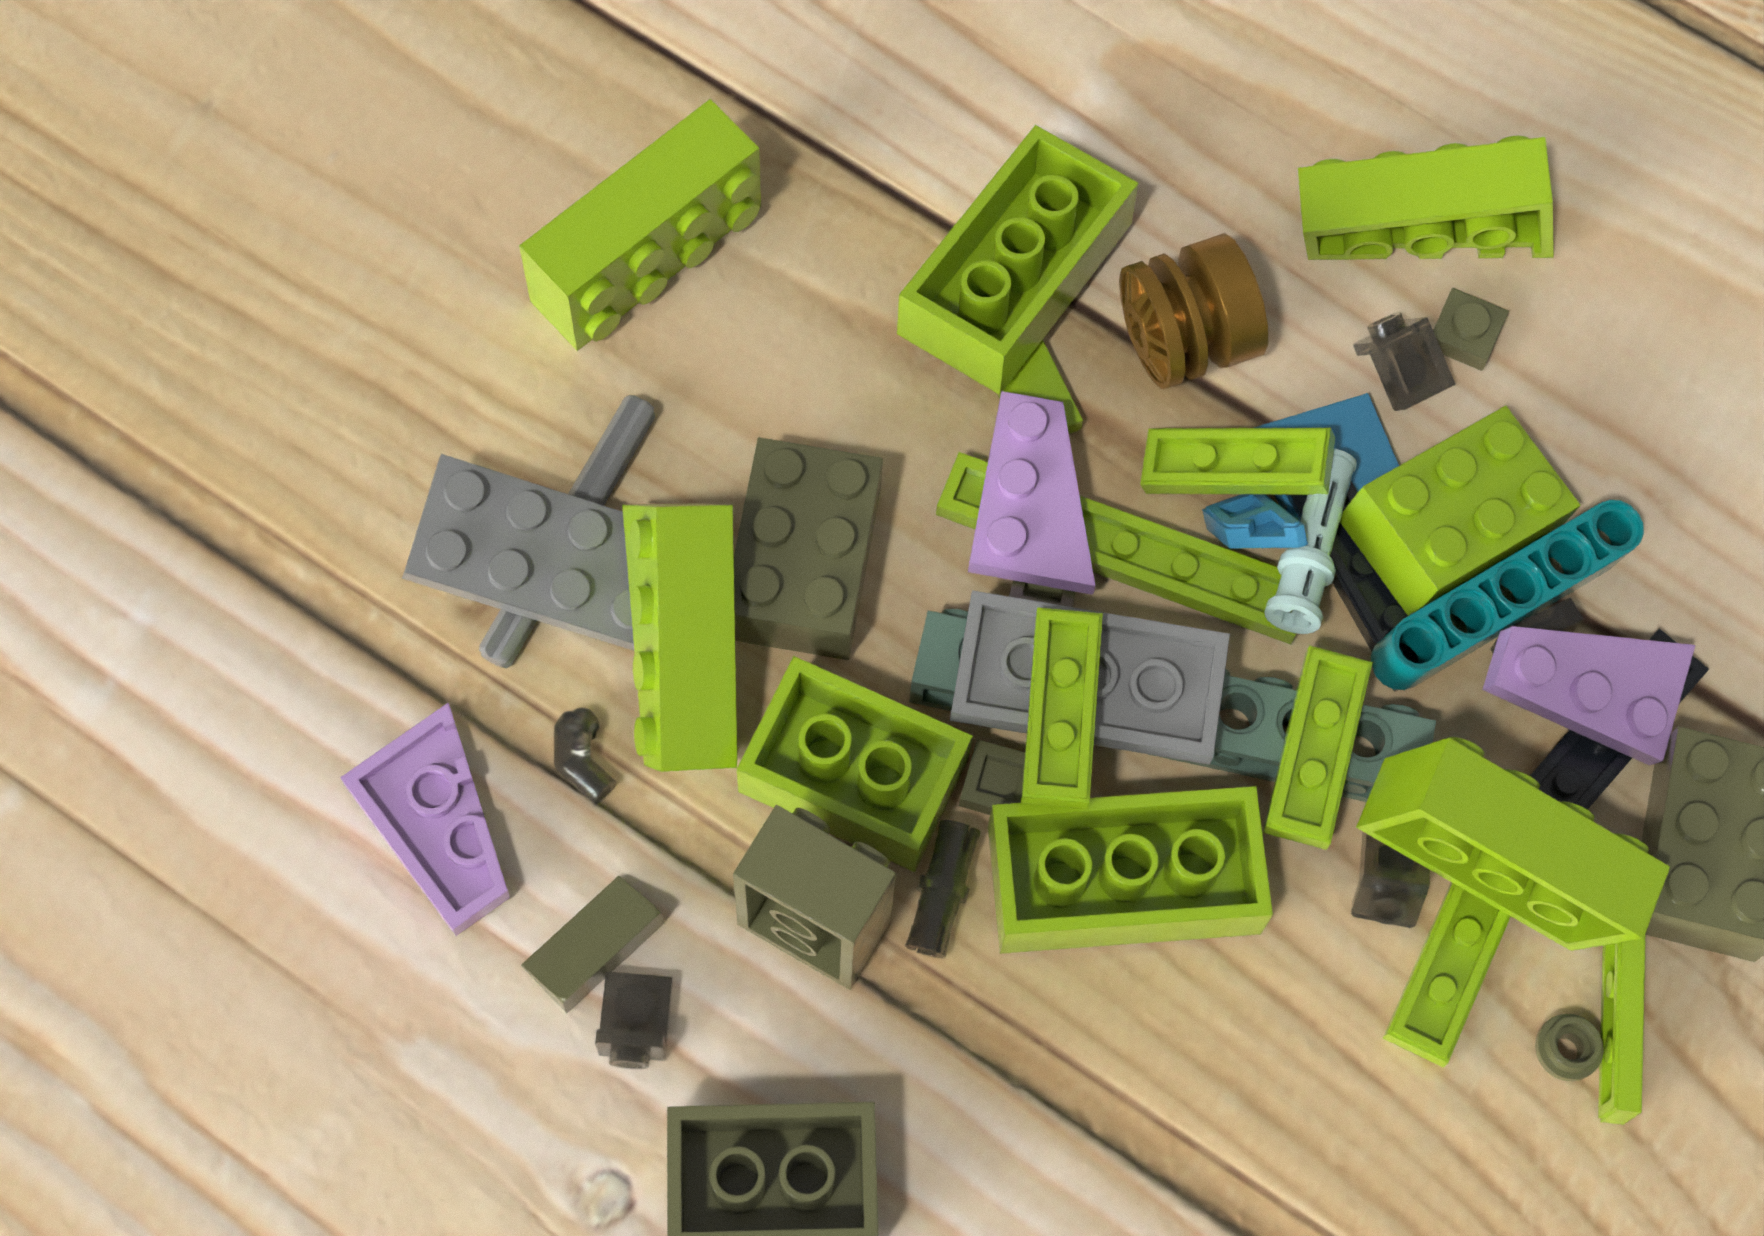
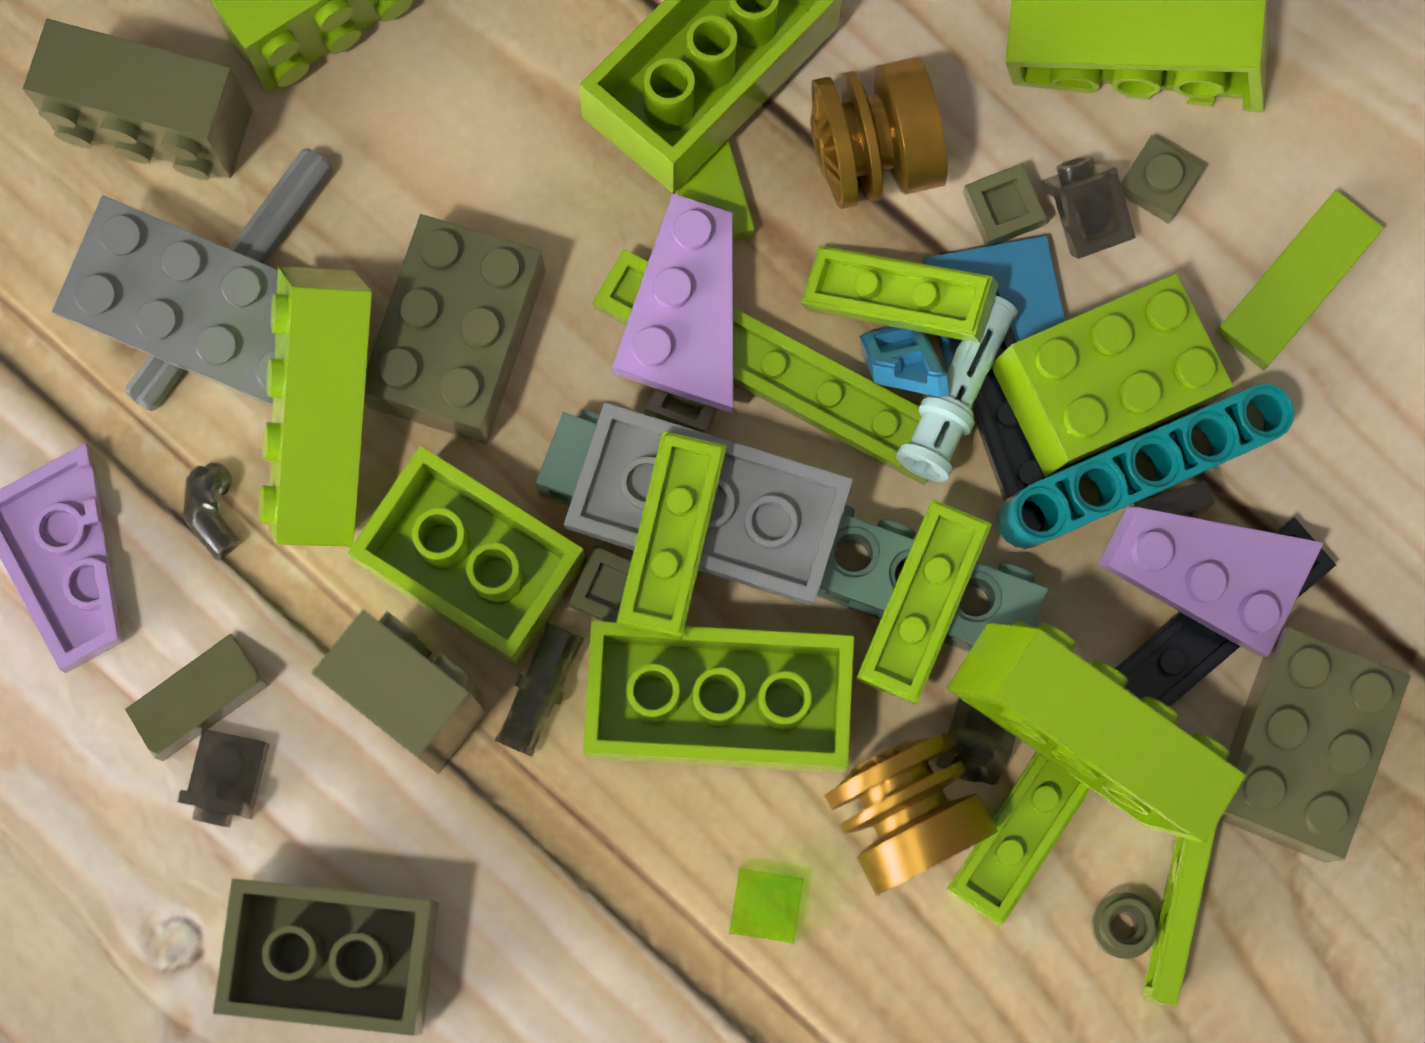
camera: 10 degrees right, 10 degrees up
(460, 364) = (138, 100): none -> olive brick
(1206, 1076) = (766, 906): none -> clear neon green plate
(1322, 369) = (1004, 205): none -> olive plate
(1340, 955) = (909, 812): none -> pearl gold wheel
(1619, 407) = (1299, 280): none -> lime tile

